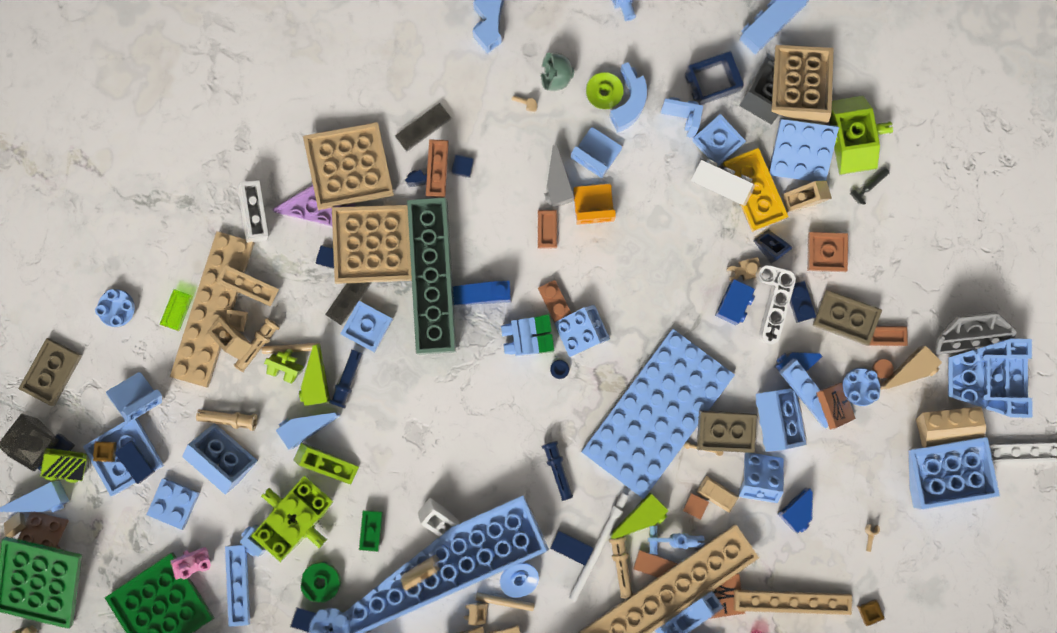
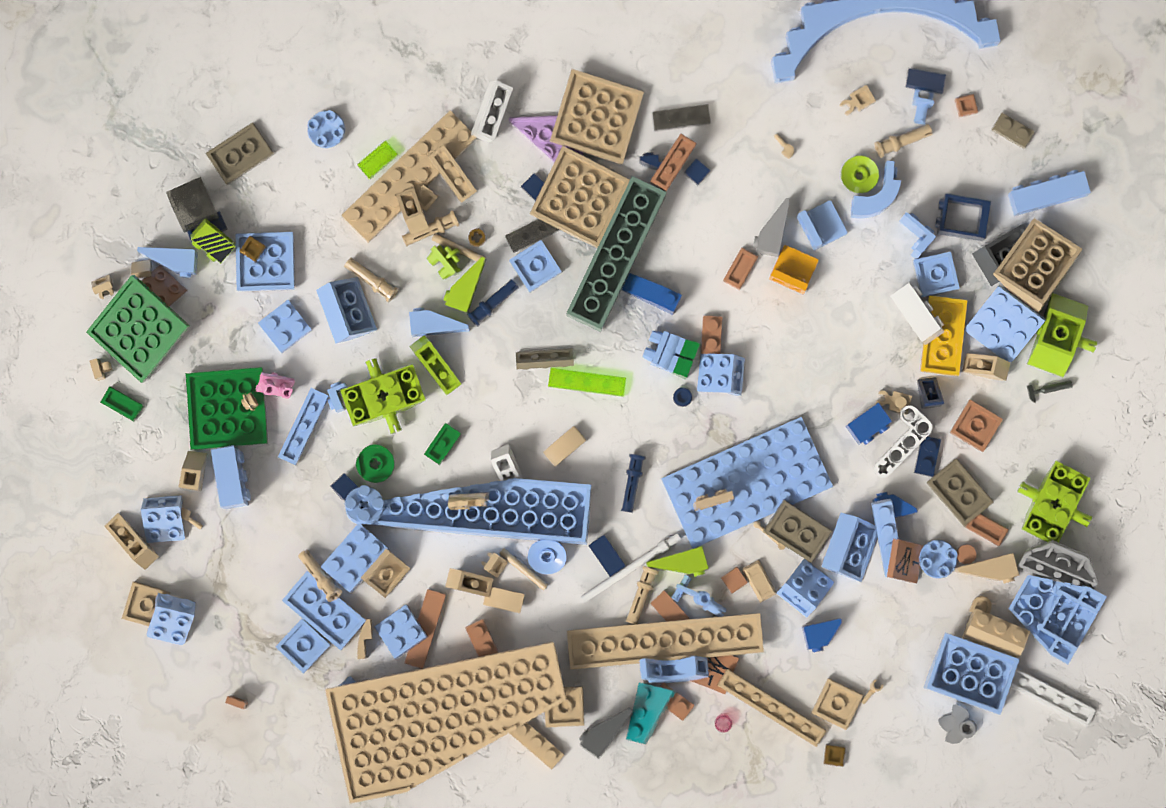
camera: 25 degrees right, 0 degrees up
(134, 397) = (302, 216): light blue bracket -> none
(134, 462) = (273, 272): dark blue tile -> none
(175, 592) = (249, 401): none -> tan plate
(295, 329) = (471, 235): none -> pearl gold bush
(419, 404) = (544, 358): none -> dark tan plate
(468, 403) = (587, 382): none -> clear neon green tile
(480, 471) = (564, 446): none -> tan slope
(557, 71) = (827, 134): sand green cylinder -> none
(568, 26) = (859, 99): none -> tan plate
(620, 47) = (895, 143): none -> tan pin
(645, 441) = (720, 497): none -> tan plate
(847, 565) = (837, 704): none -> tan tile
(921, 405) = (981, 603): none -> tan tile
(939, 264) = (1059, 485): none -> lime slope
(959, 524) = (954, 725): none -> light grey plate

